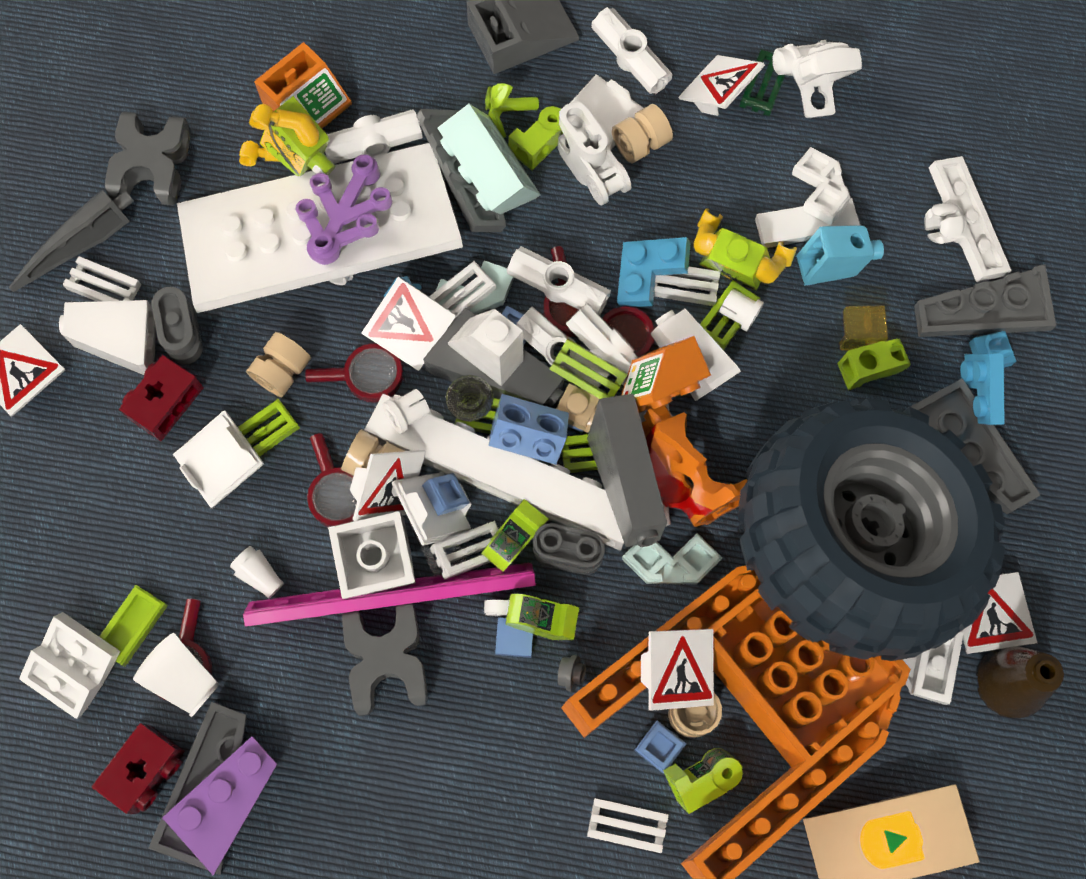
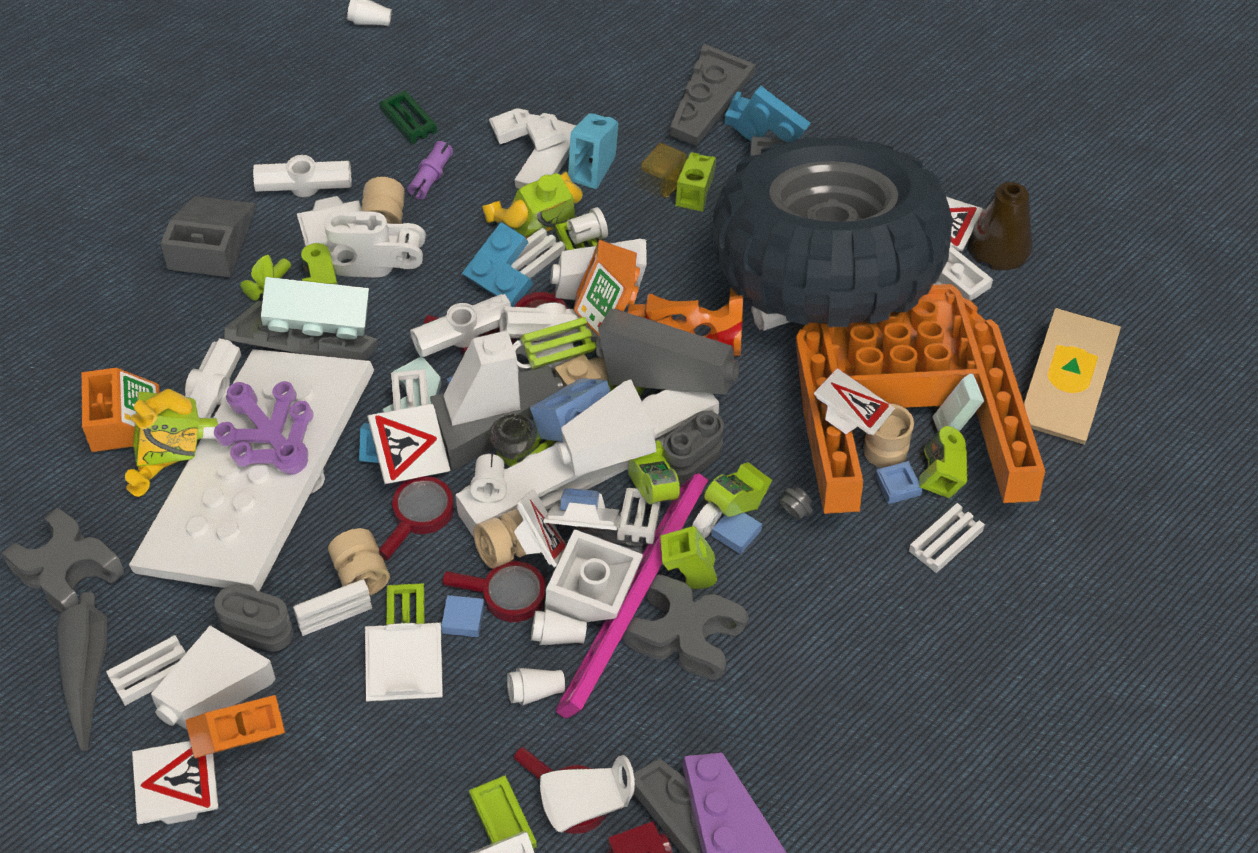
camera: 55 degrees left, 20 degrees down
(69, 381) = (234, 726): none -> orange brick
(155, 414) = (316, 691): dark red brick -> none
(229, 373) = (332, 607): none -> white tile
(289, 474) = (462, 616): none -> medium blue tile
(318, 554) = (555, 628): none -> white cone
(443, 619) = (691, 554): none -> lime leg
(515, 474) = (608, 432): none -> white slope
(687, 566) = (751, 403): light aqua tile -> none
(716, 141) = (430, 170): none -> medium lavender pin
(720, 83) = (386, 138): white piece -> none
(765, 760) = (959, 405): none -> light aqua tile
(817, 67) = (432, 73): white piece -> none
(964, 220) = (629, 68): white plate -> none

